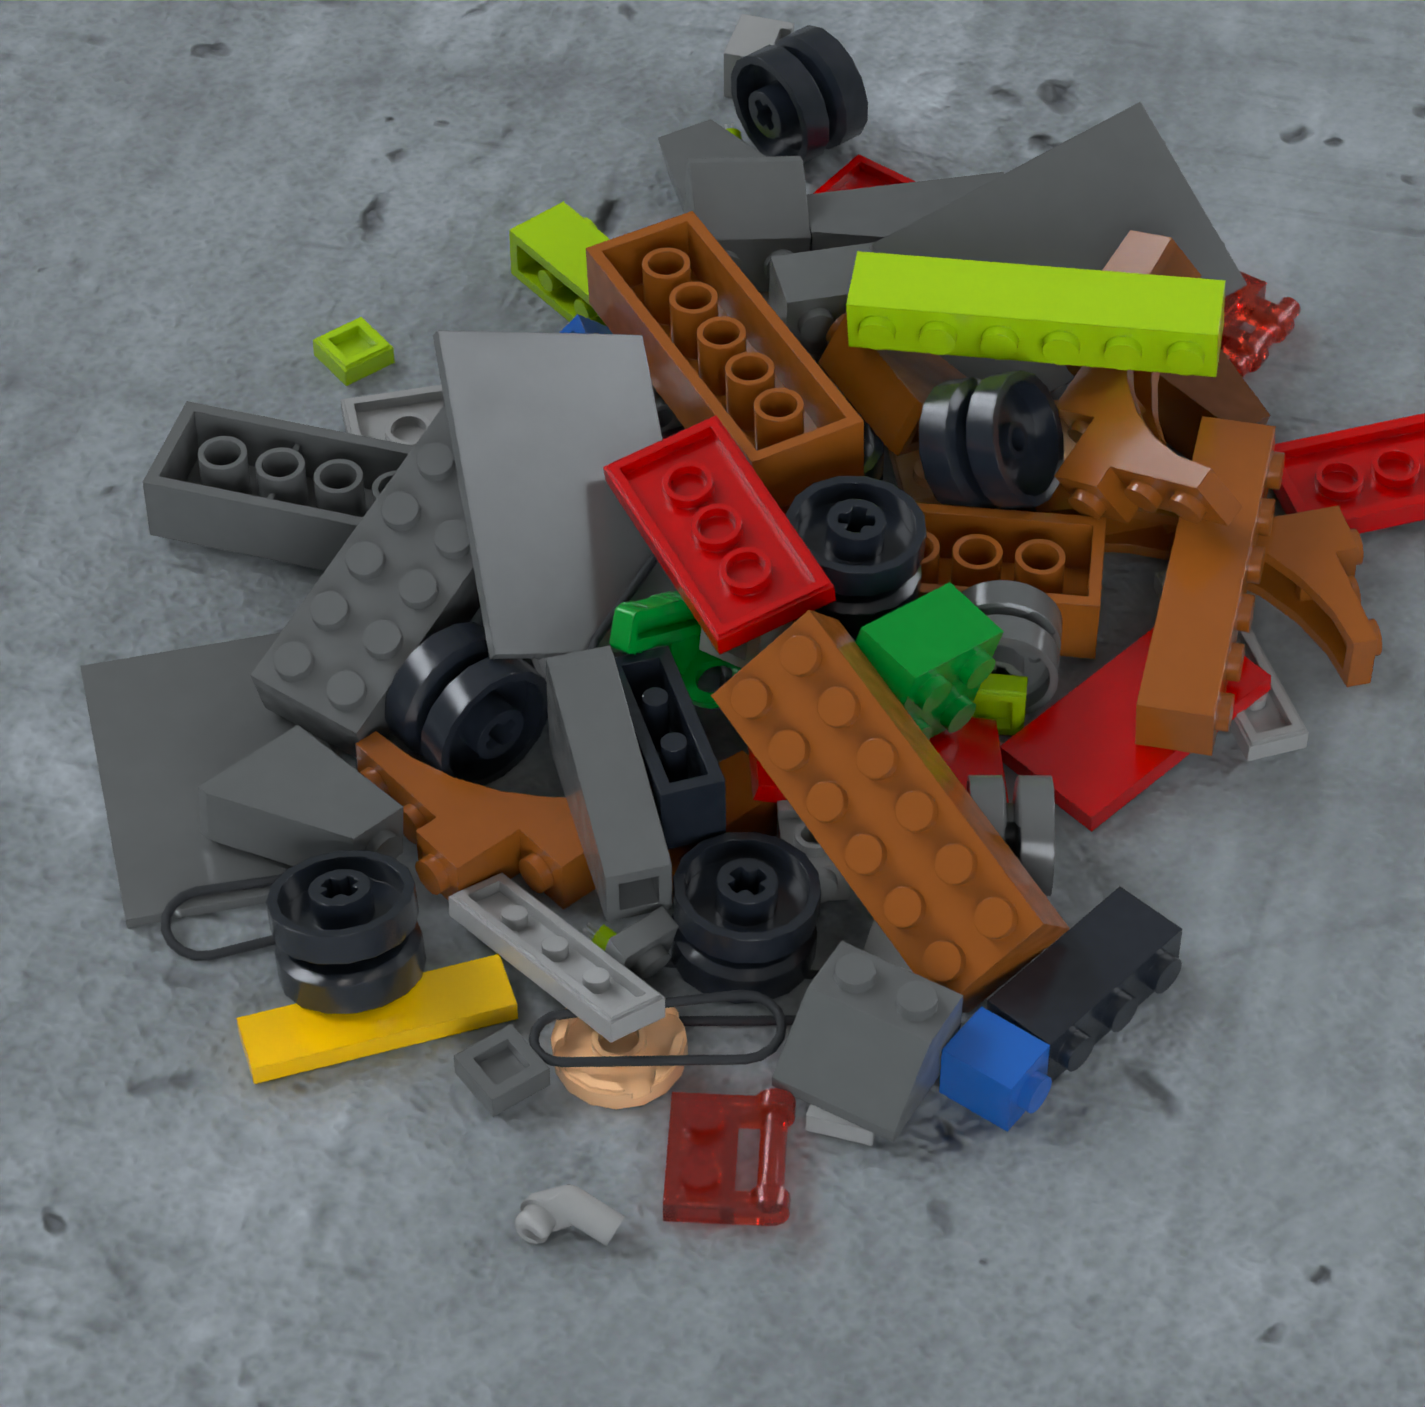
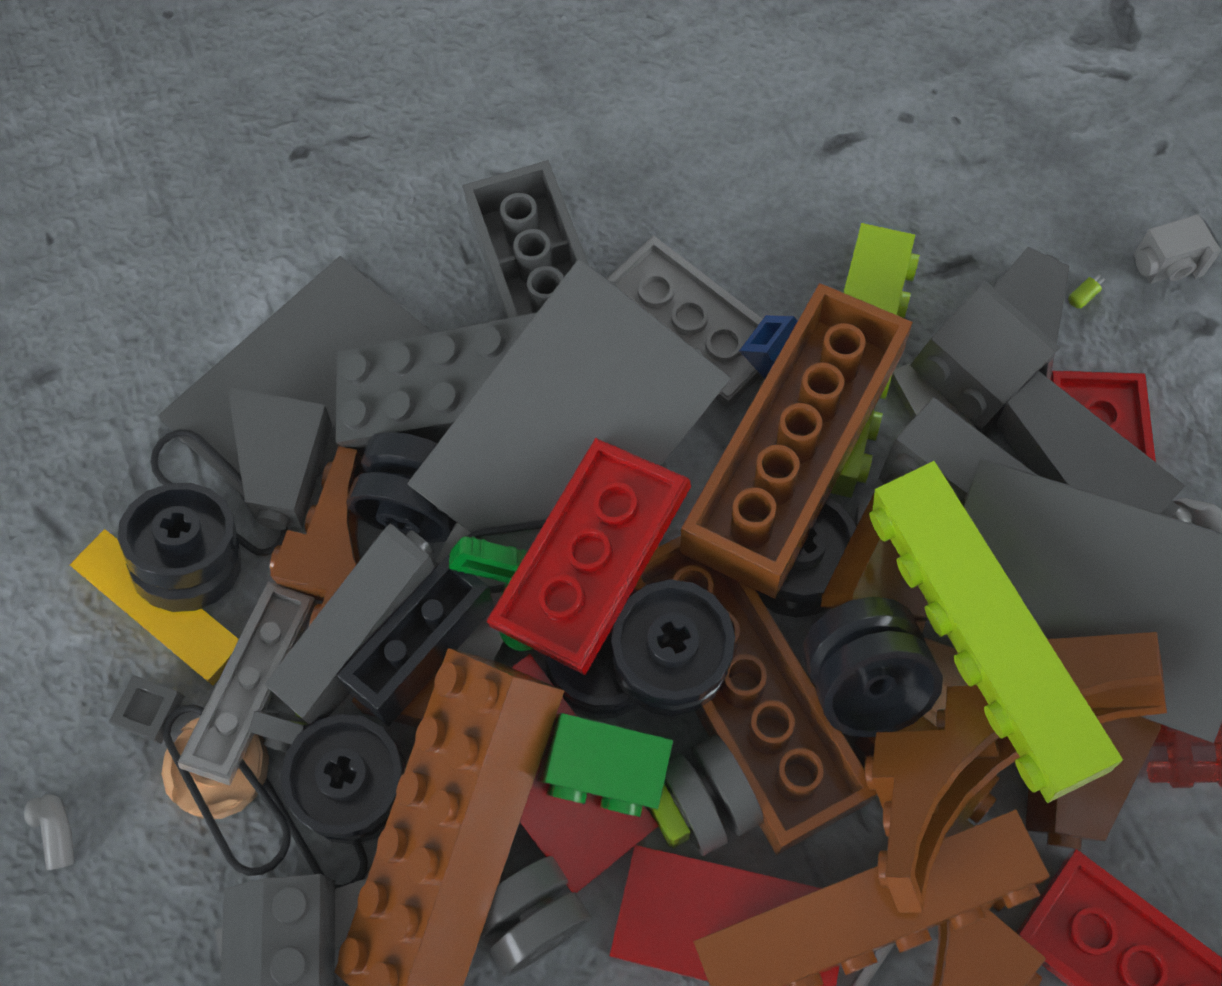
camera: 60 degrees right, 20 degrees up
(353, 351) = (707, 212): lime tile -> none
(705, 1158) = (149, 885): clear red plate -> none
(799, 95) = (1148, 303): black wheel -> none

